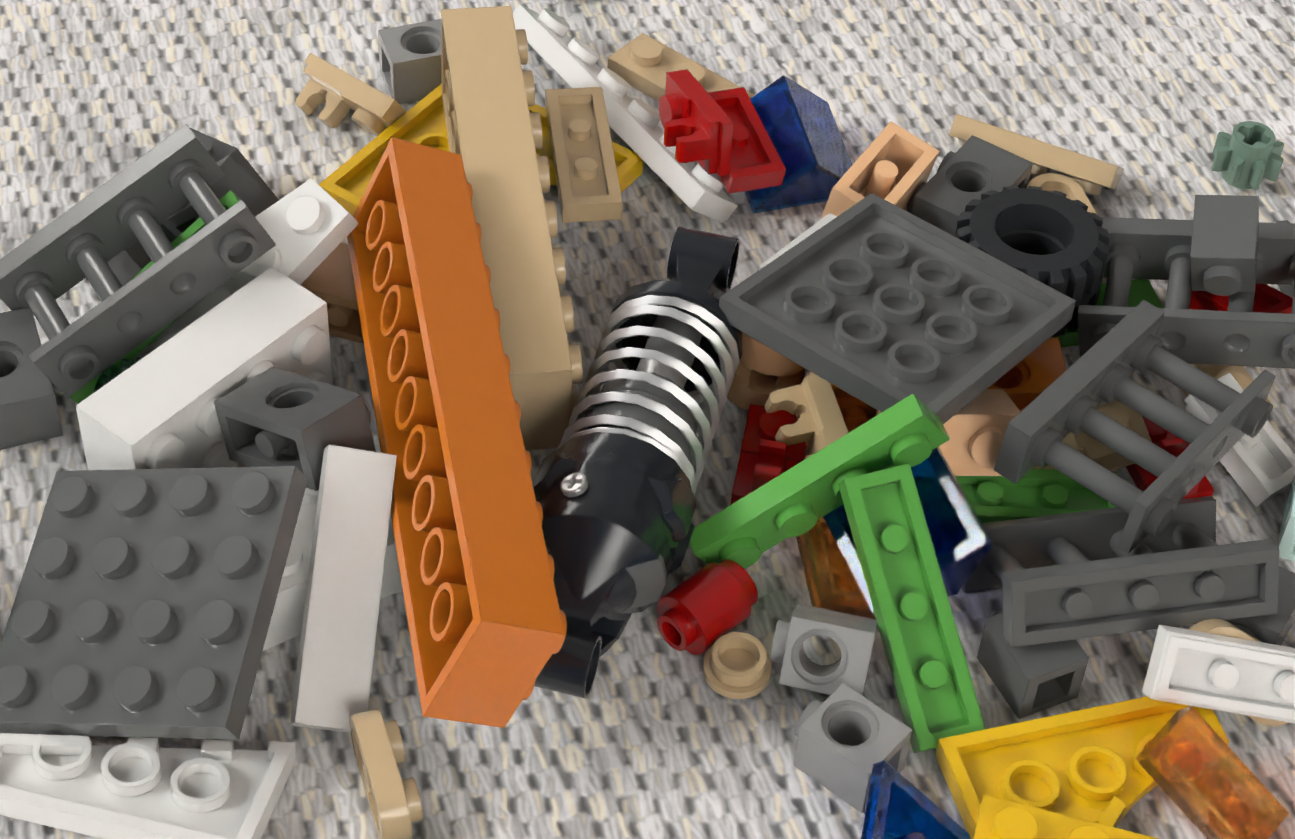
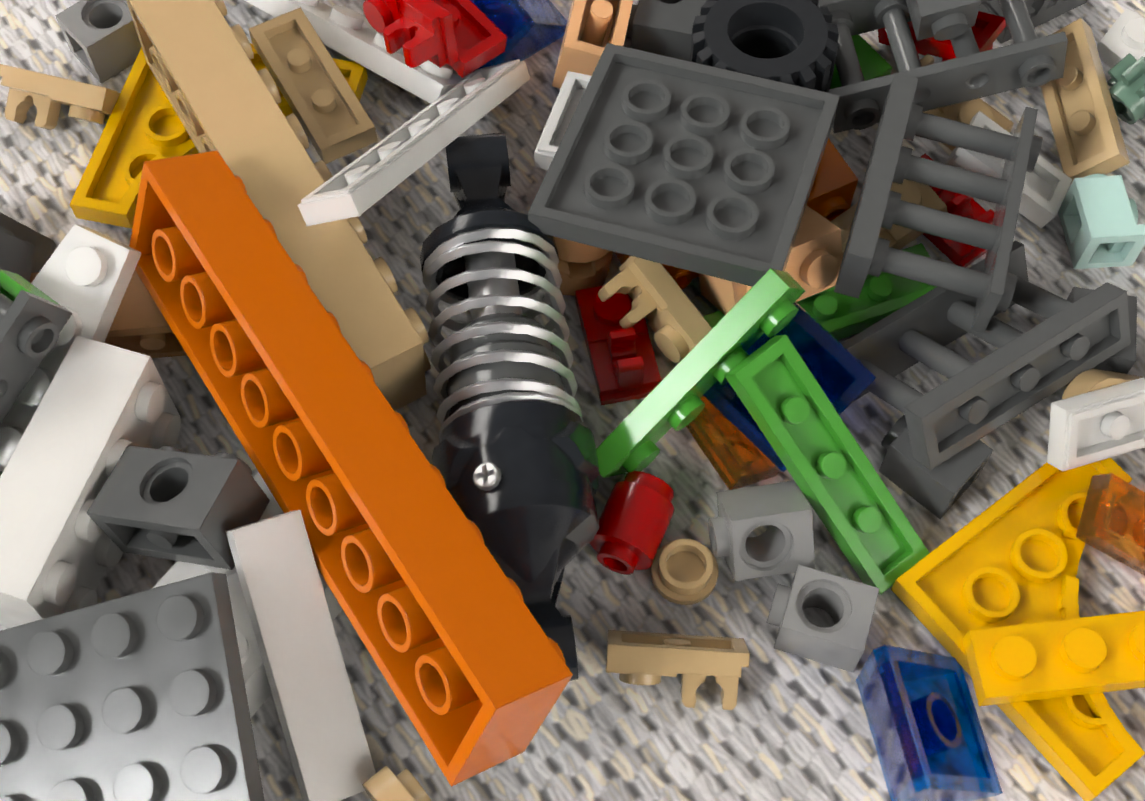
camera: 20 degrees left, 15 degrees up
(650, 215) = (412, 144): none -> white tile
(661, 717) = (647, 656): none -> tan plate

